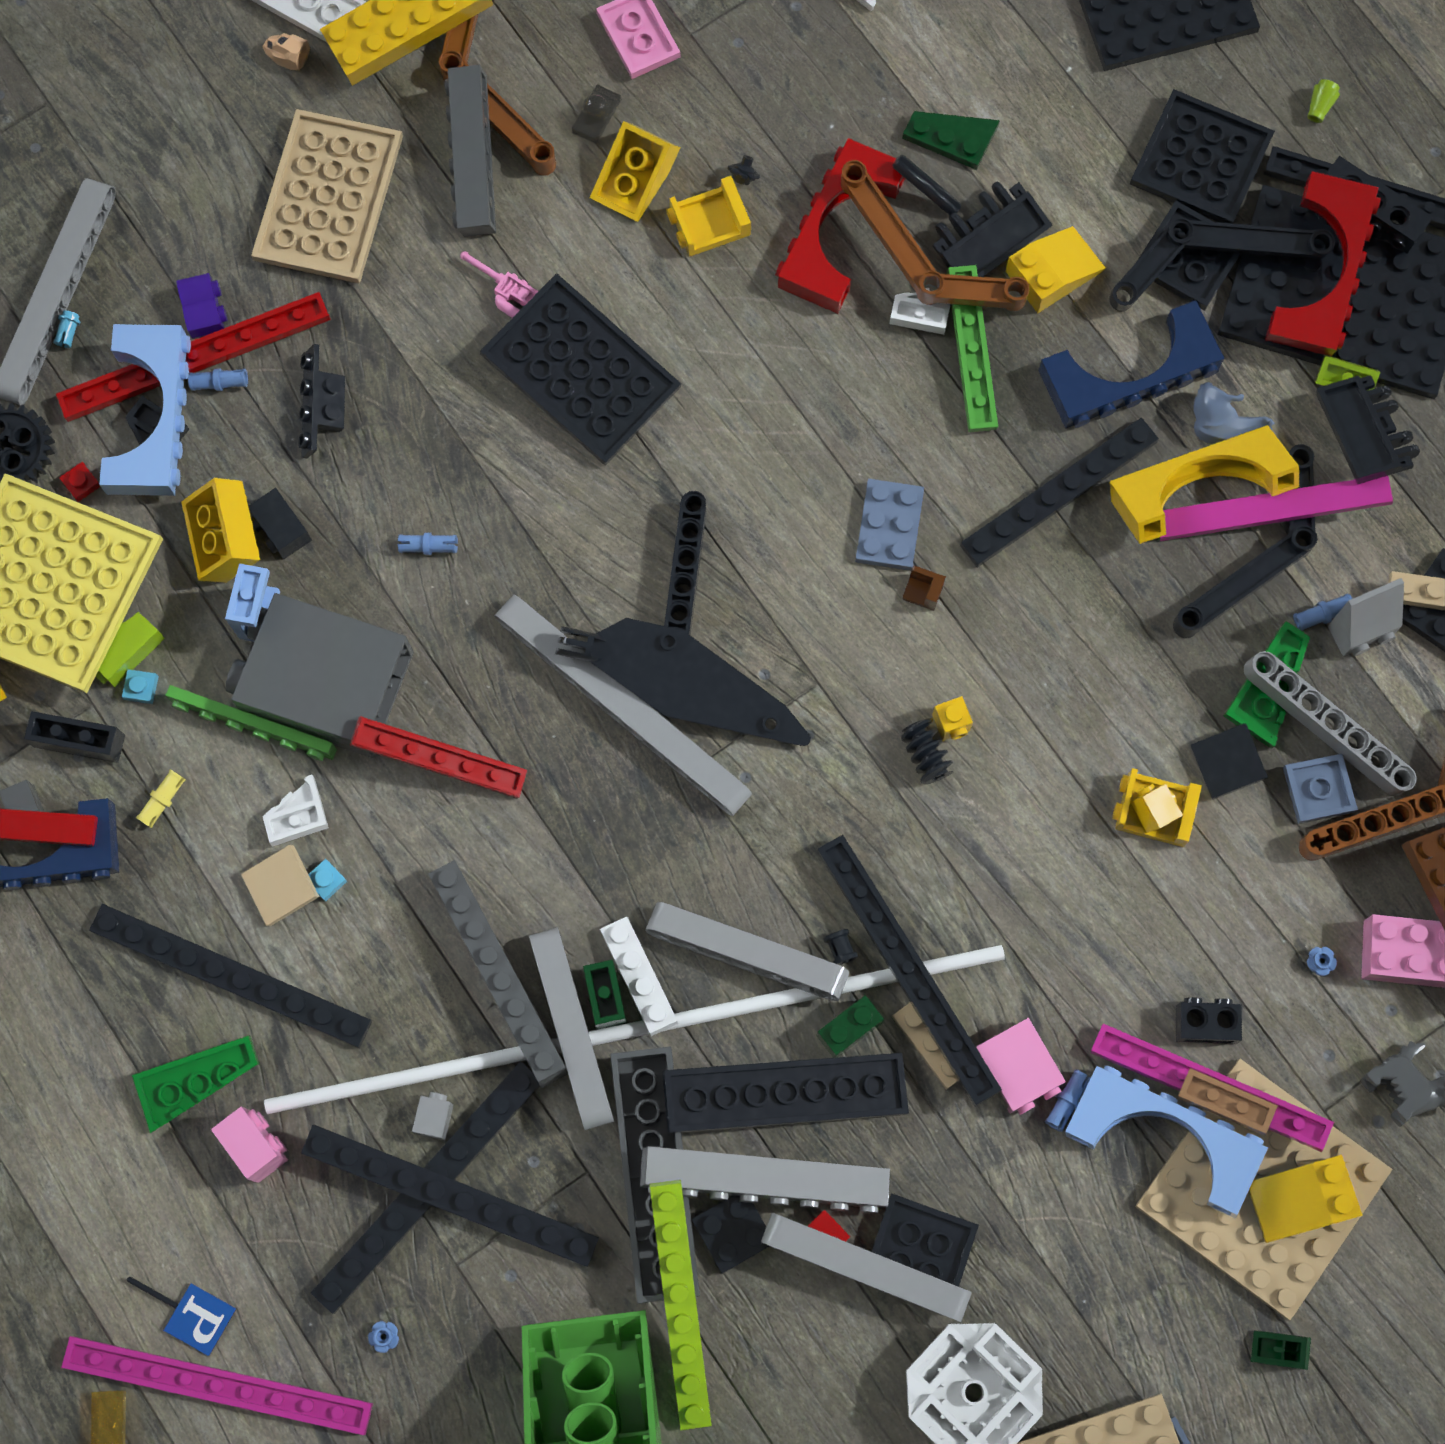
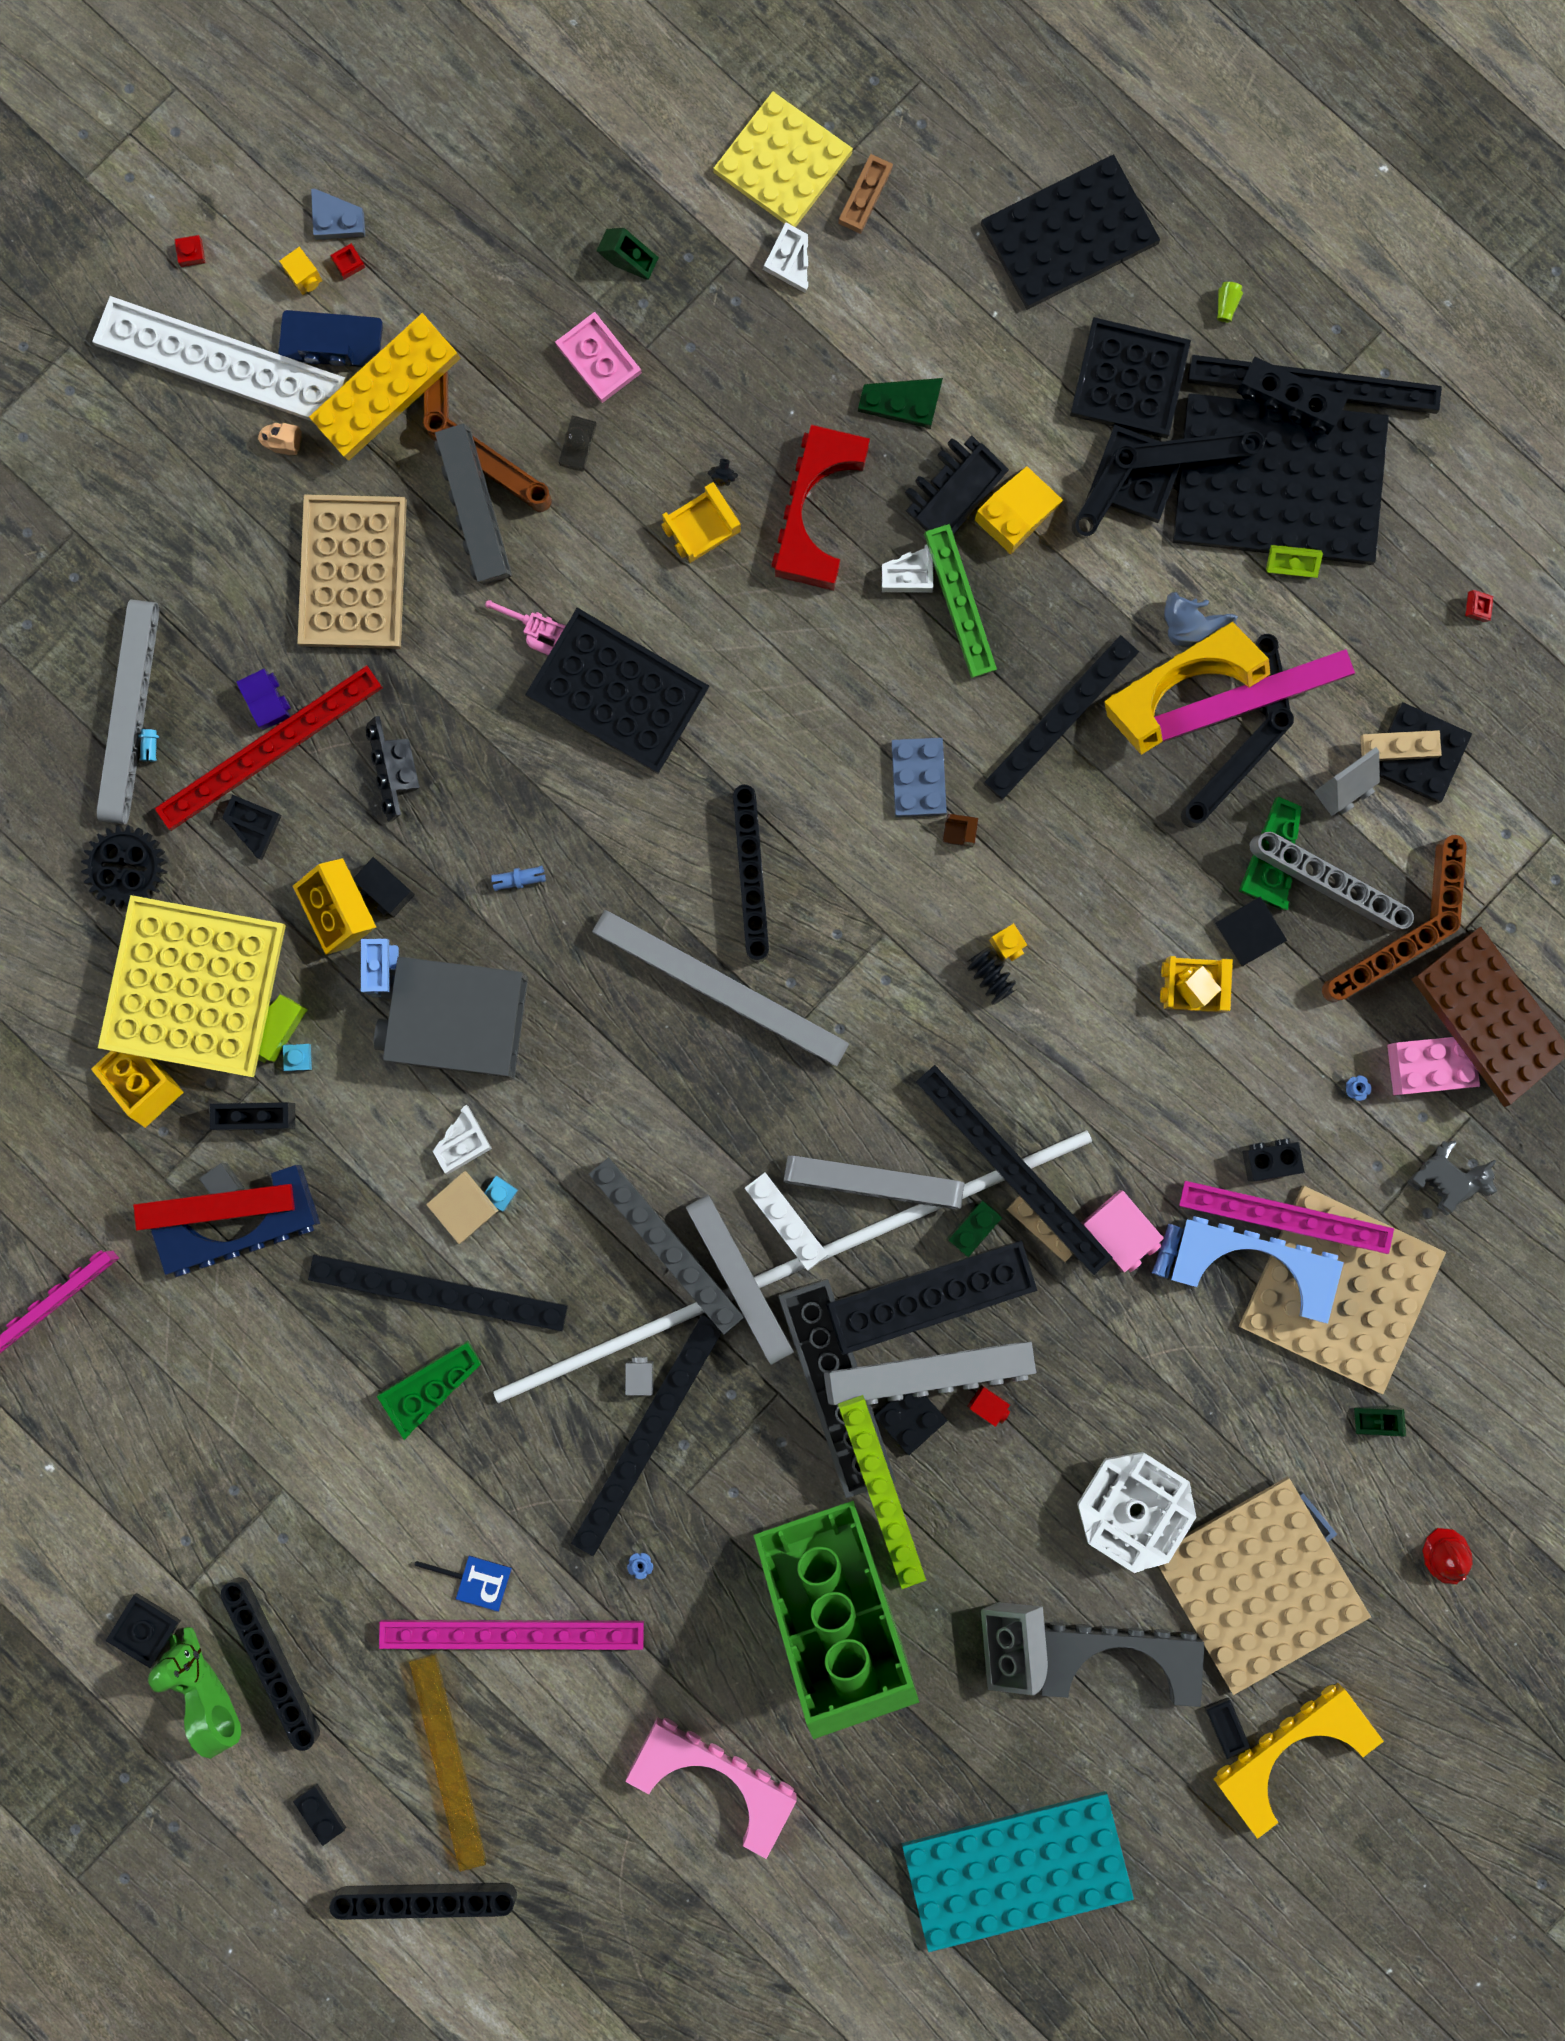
camera: 15 degrees left, 10 degrees up
(80, 481) = (196, 883): red plate -> none
(153, 464) = (260, 857): light blue arch -> none
(161, 798) = (340, 1153): light yellow pin -> none
(218, 379) = (296, 765): medium blue pin -> none
(250, 1144) = (492, 1434): bright pink brick -> none
(261, 727) = (413, 1074): bright green plate -> none
(438, 757) = (573, 1071): red tile -> none
(450, 1195) = (668, 1440): black plate -> none
(604, 994) = (761, 1245): dark green brick -> none
(634, 171) = (624, 493): yellow slope -> none
(683, 679) = (770, 956): black wing -> none
(840, 947) = (952, 1161): black bush -> none
(866, 1267) = (1028, 1428): light grey beam -> none
(912, 260) = (891, 531): dark orange piece -> none
(925, 1239) = (1069, 1404): black plate -> none
(926, 185) = (890, 455): black axle -> none
(1083, 396) = (1065, 625): dark blue arch -> none
(1227, 1101) = (1303, 1229): medium nougat plate -> none
(1304, 1199) = (1379, 1294): yellow slope -> none
(1320, 788) = (1332, 939): sand blue plate -> none
(1321, 613) = (1309, 781): medium blue pin -> none
(1348, 210) = (1273, 410): red arch -> none
(1365, 427) = (1317, 609): black hinge -> none

